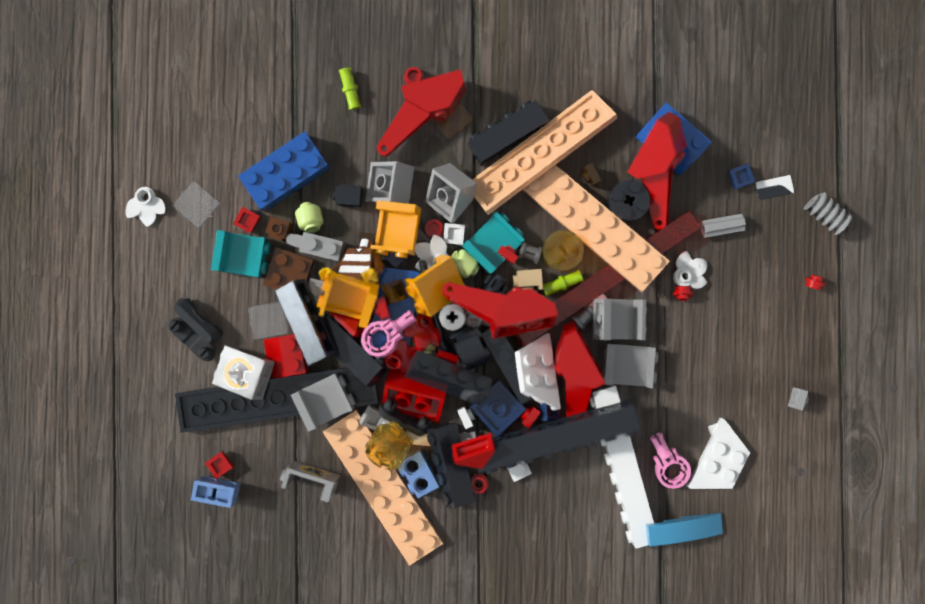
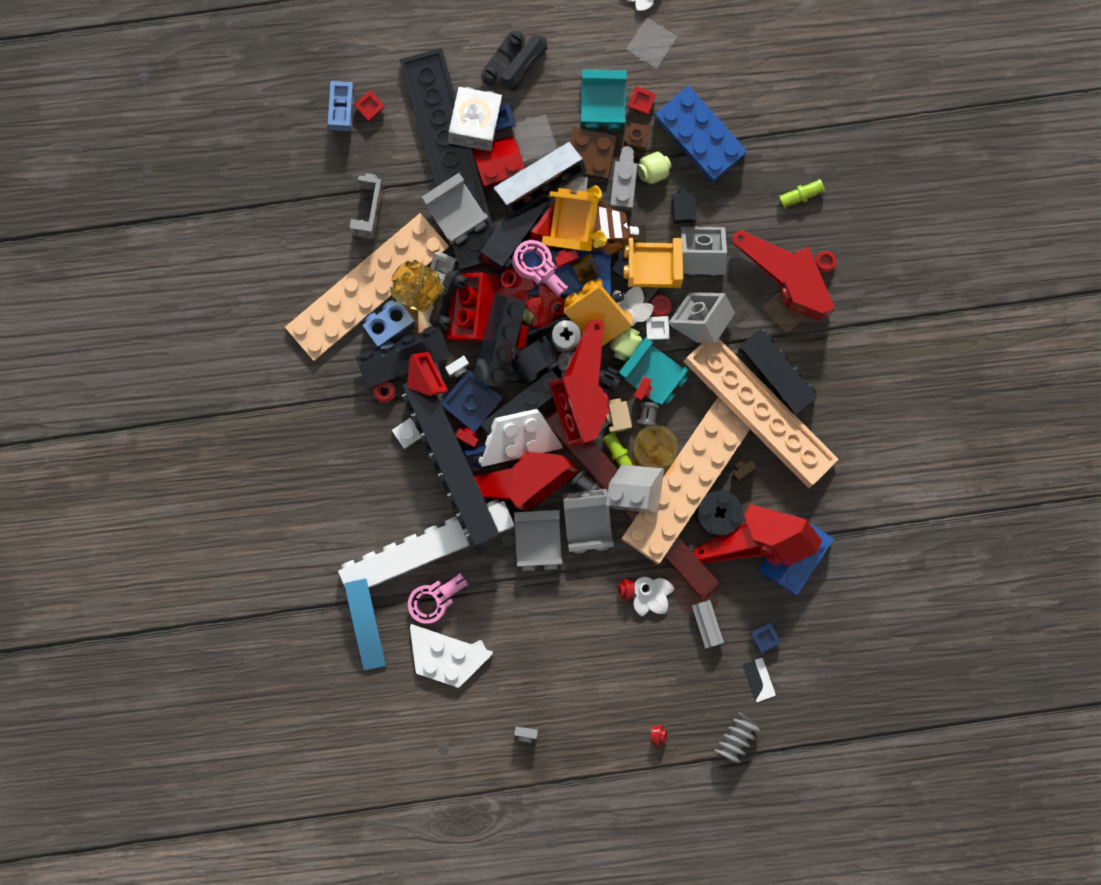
camera: 75 degrees right, 5 degrees down
(247, 344) = (505, 118): none -> dark blue plate
(600, 273) = (636, 489): none -> light grey slope

